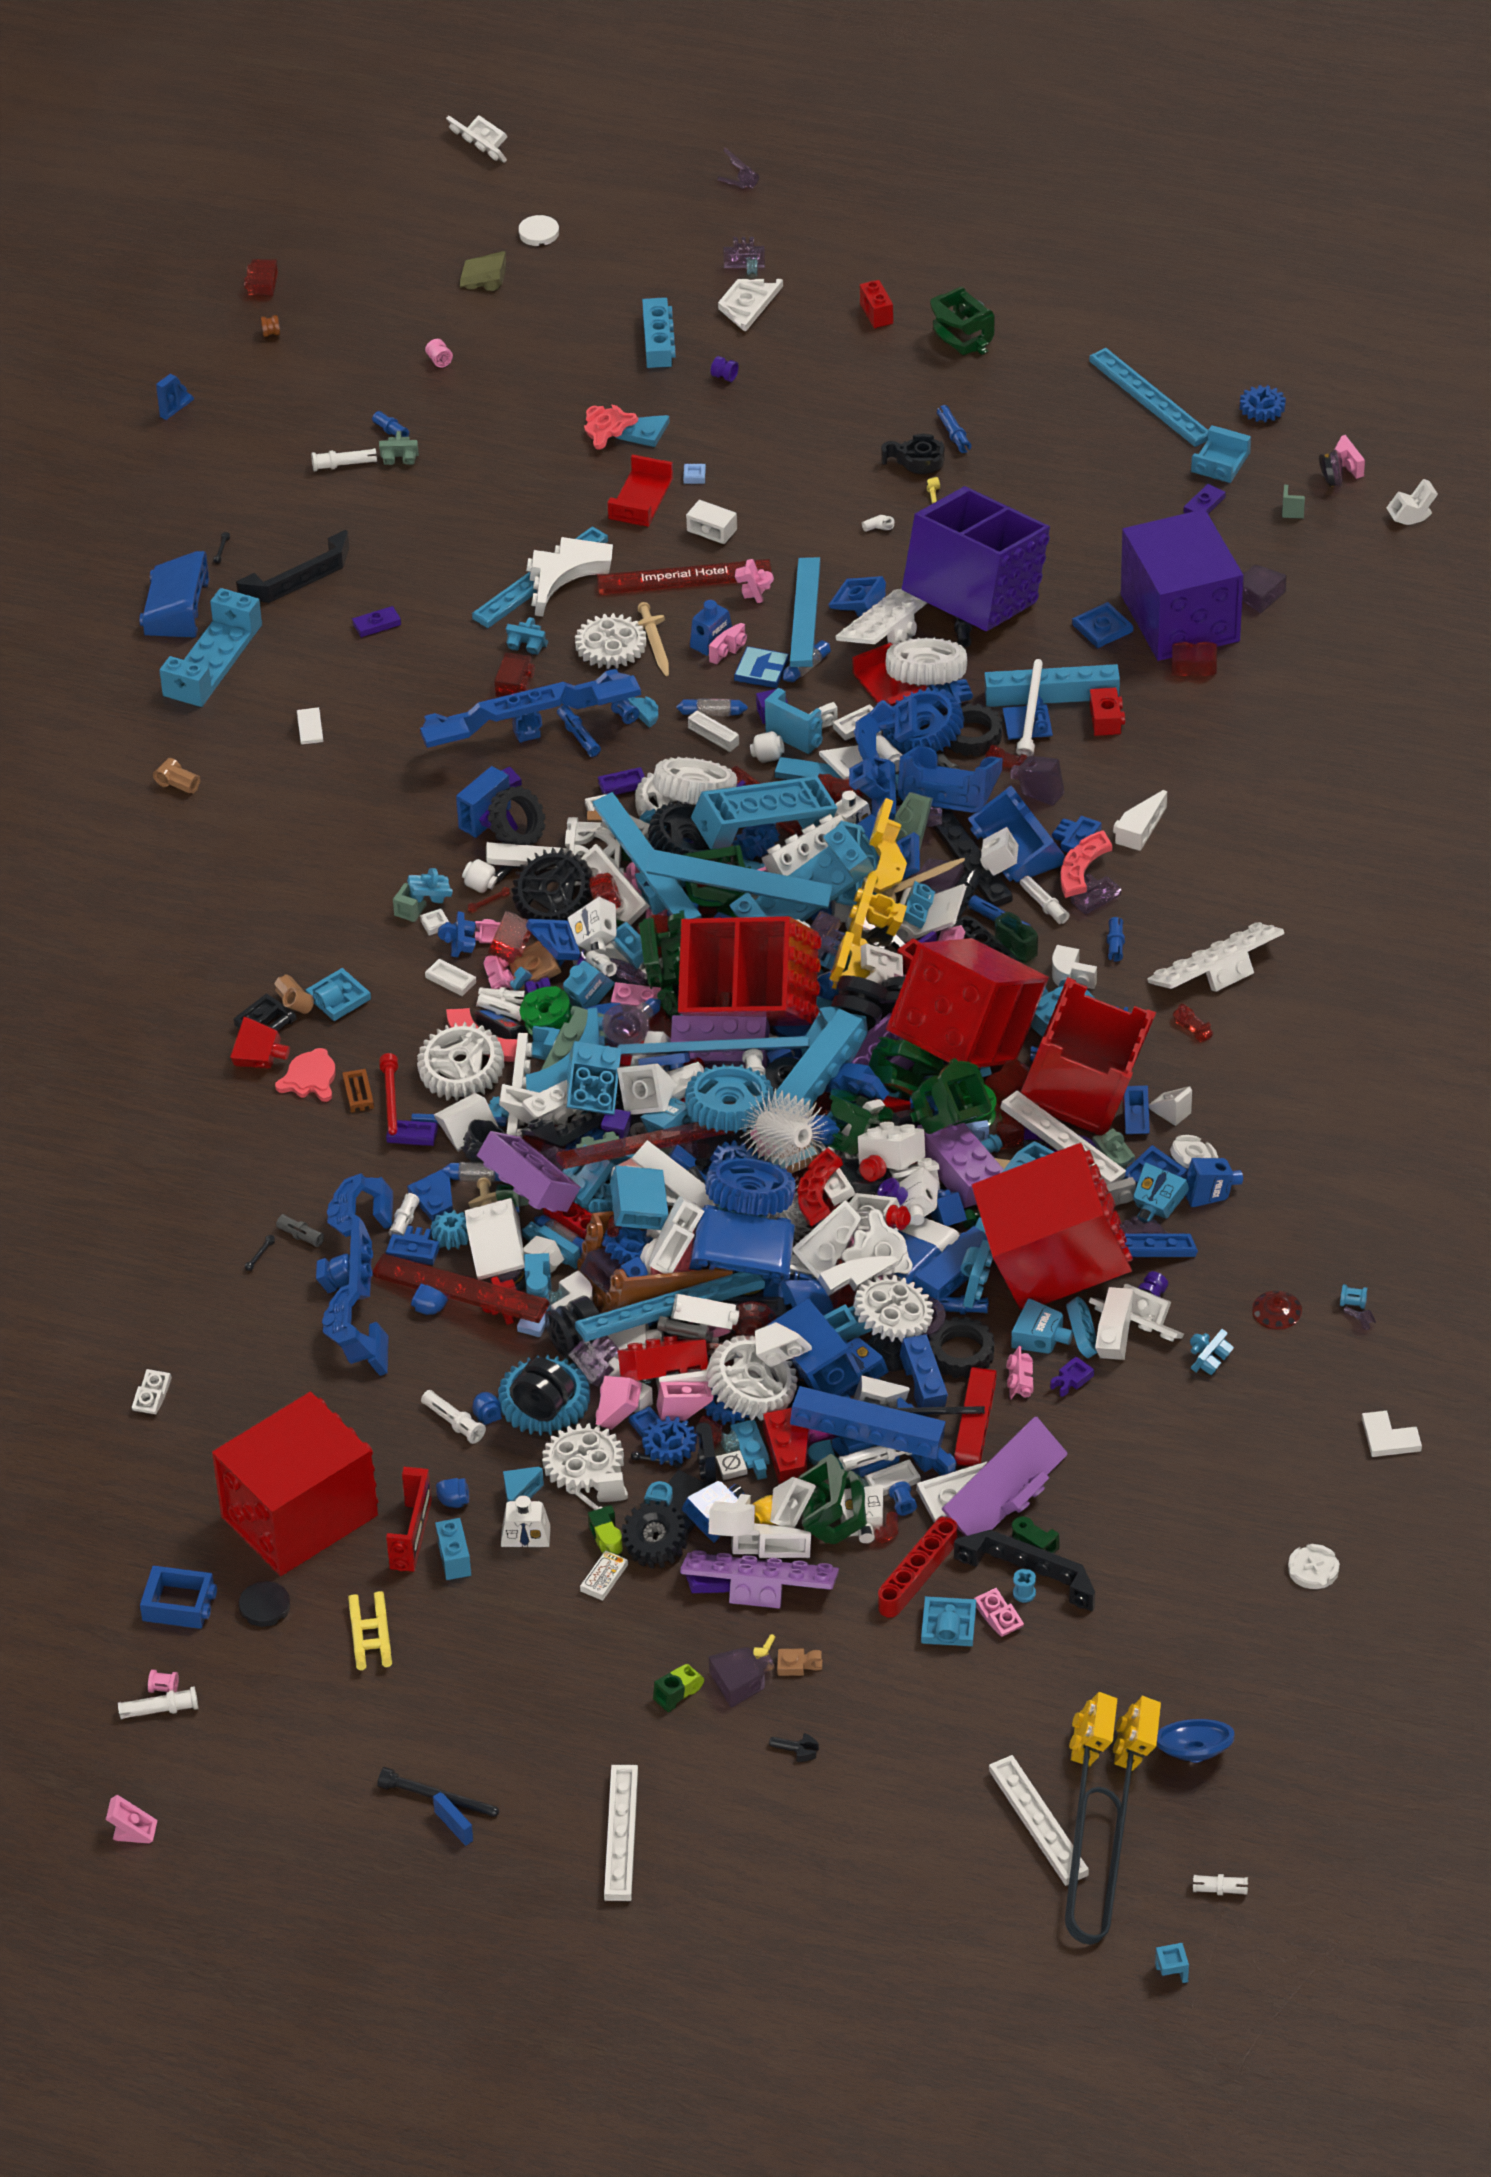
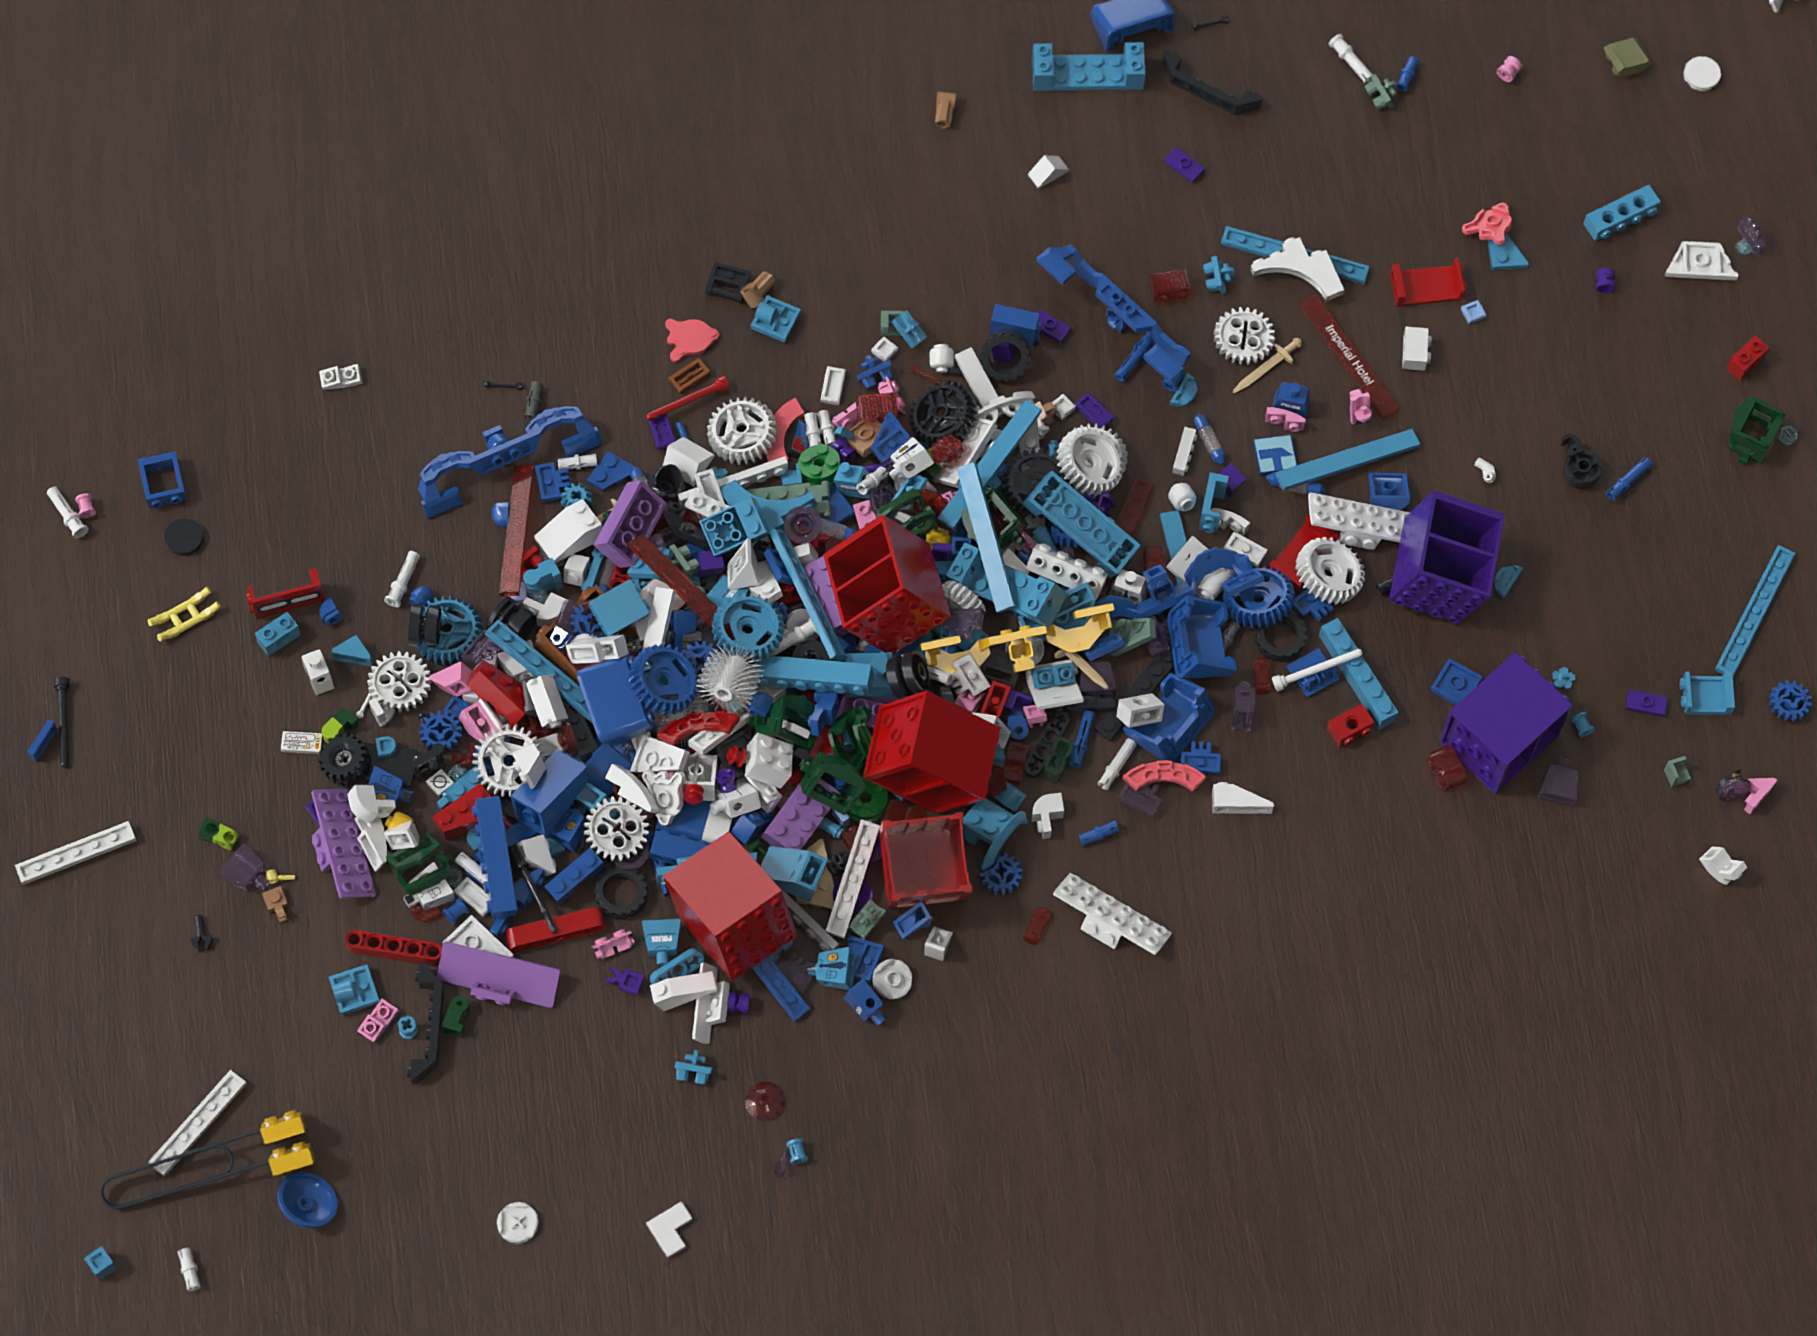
camera: 60 degrees right, 20 degrees up
(257, 1046) = (693, 289): red torso -> none
(296, 1483) = (270, 506): red container -> none
(933, 484) = (1553, 490): light yellow hand -> none

